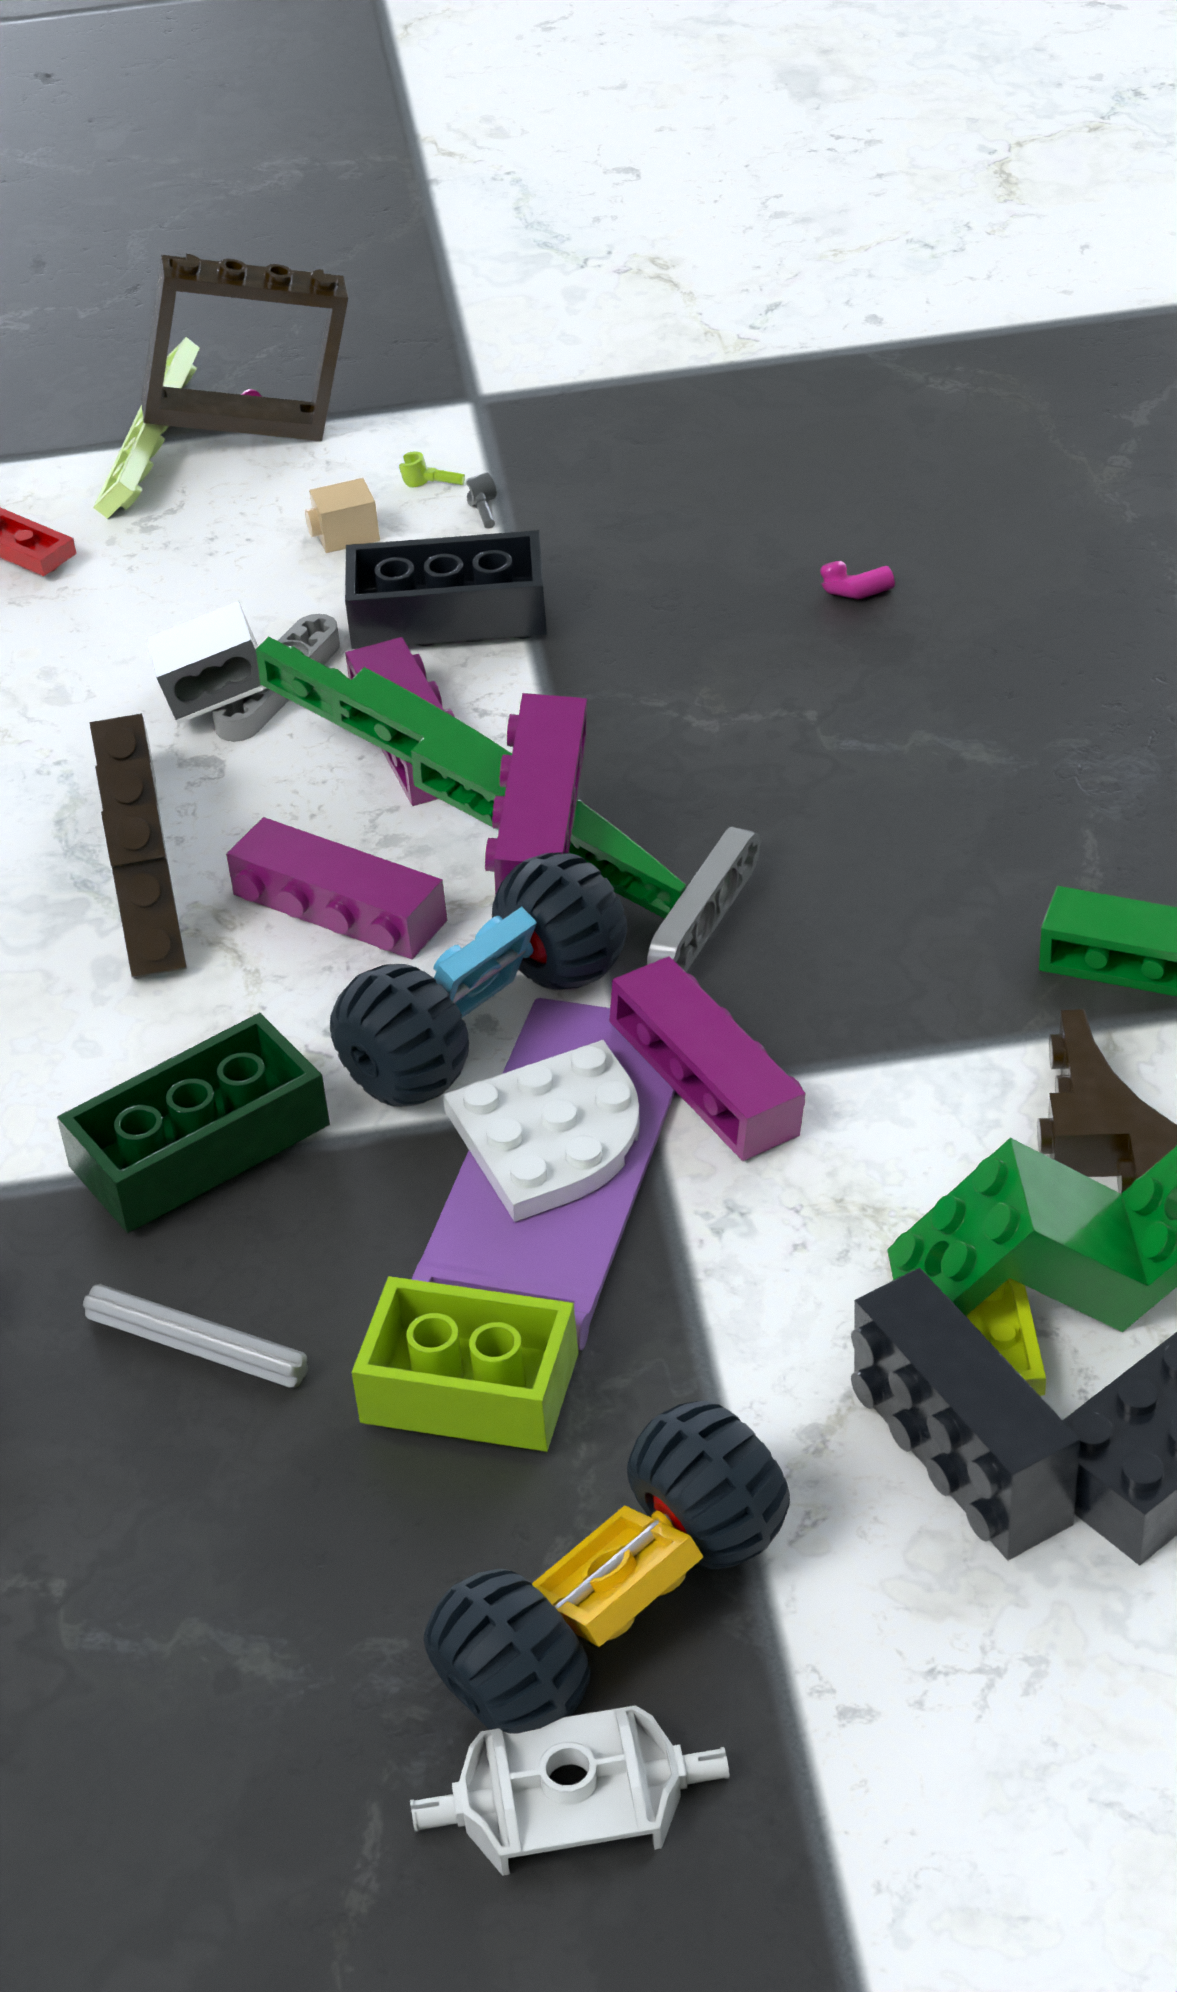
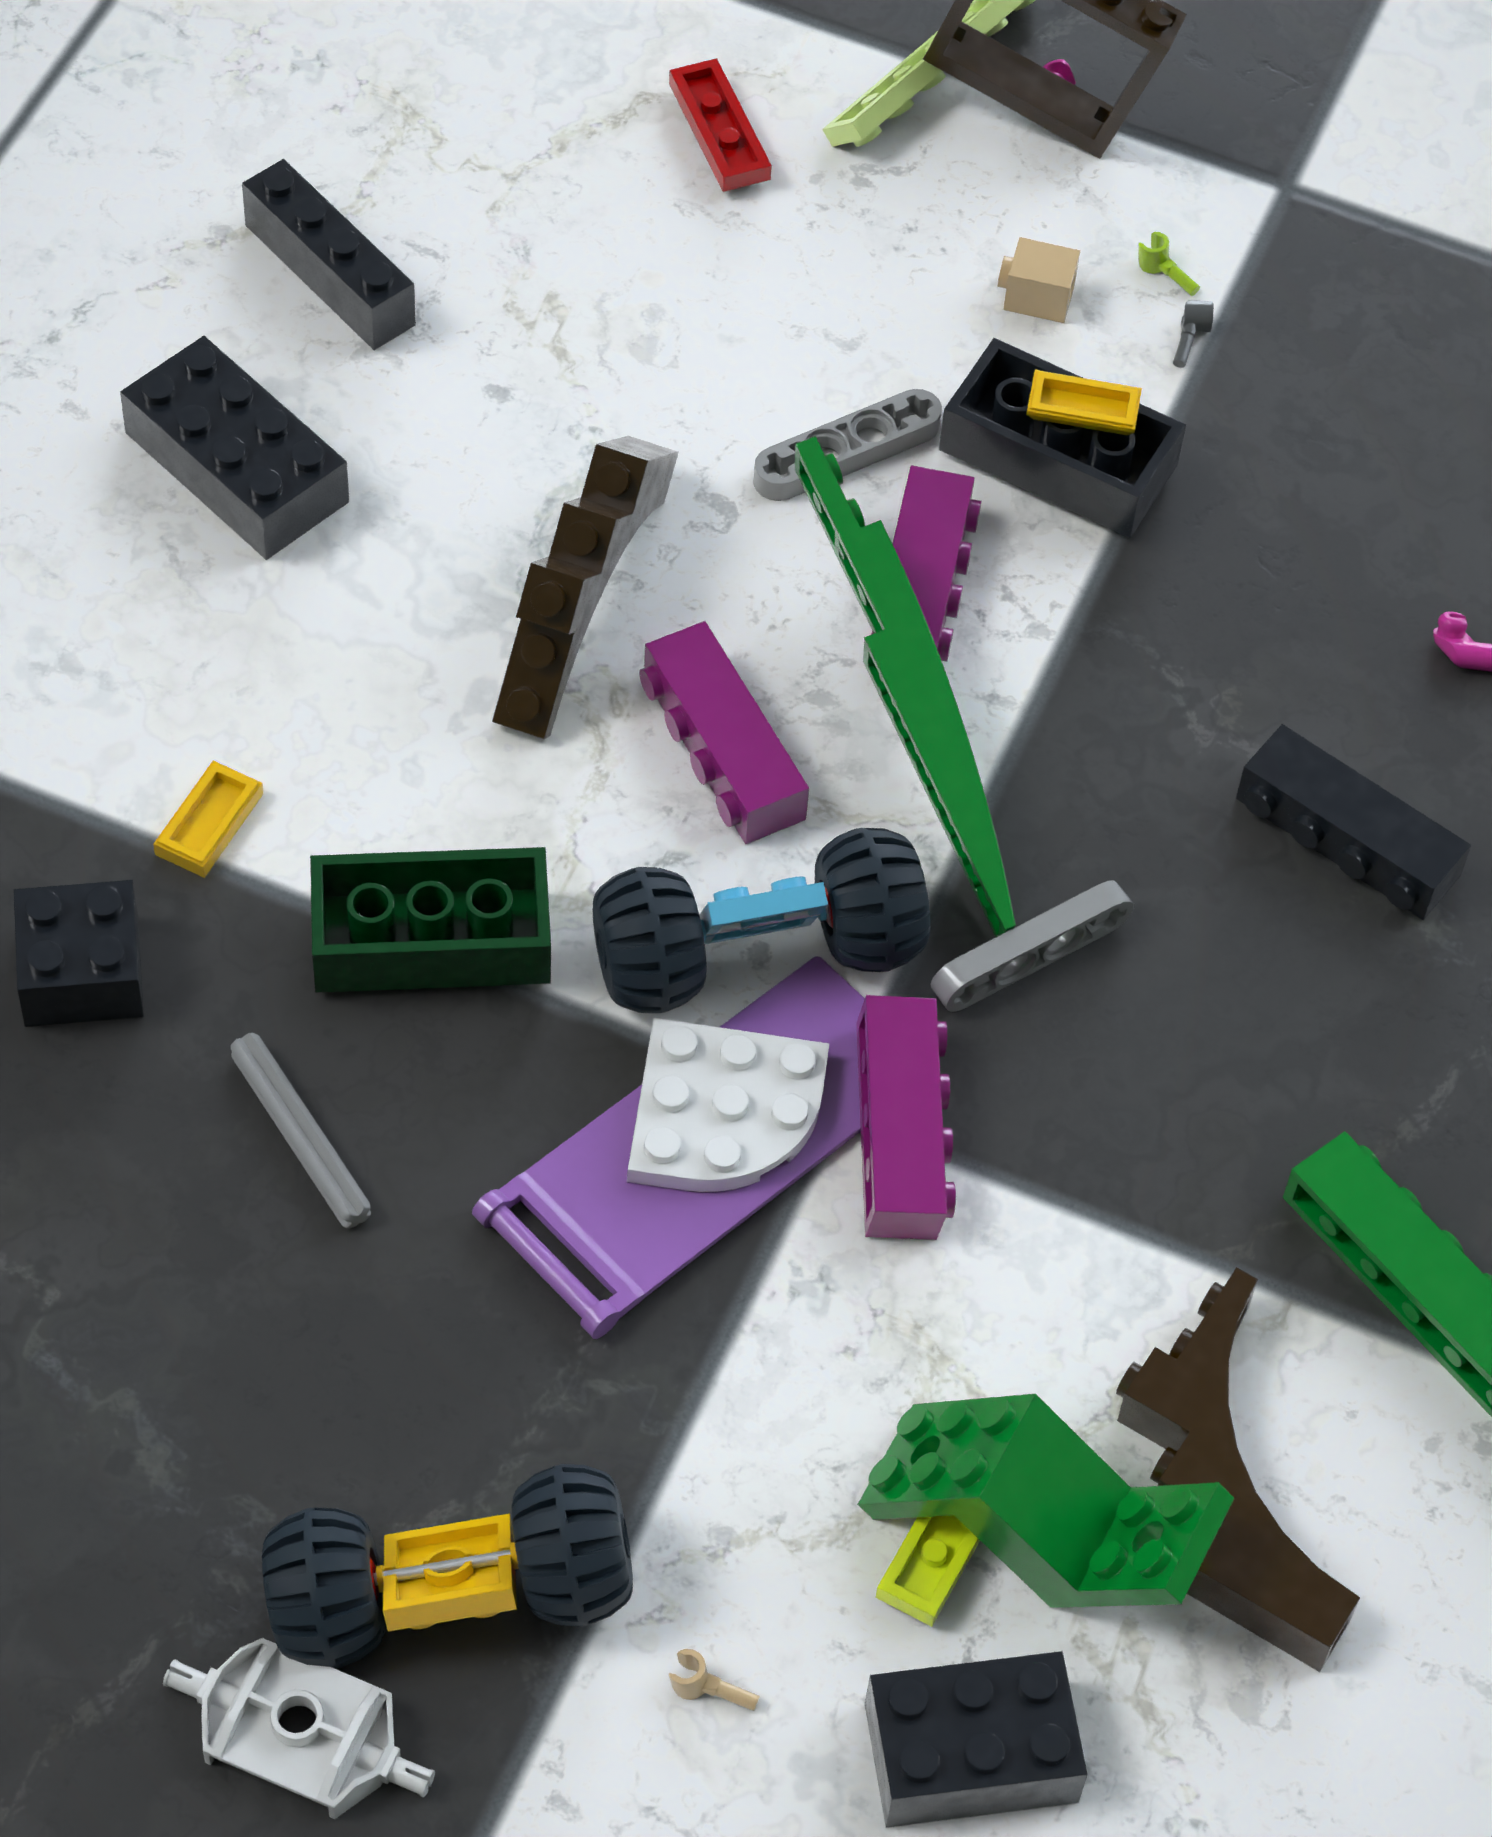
camera: 25 degrees right, 15 degrees up
(206, 662) = (780, 399): piece -> none
(453, 547) = (1084, 402): none -> yellow tile
(466, 1363) = (479, 1302): lime brick -> none
(539, 781) = (943, 752): magenta brick -> none
(873, 713) = (1352, 822): none -> black brick
(886, 1545) = (707, 1683): none -> tan hand
(964, 1414) = (826, 1609): black brick -> none

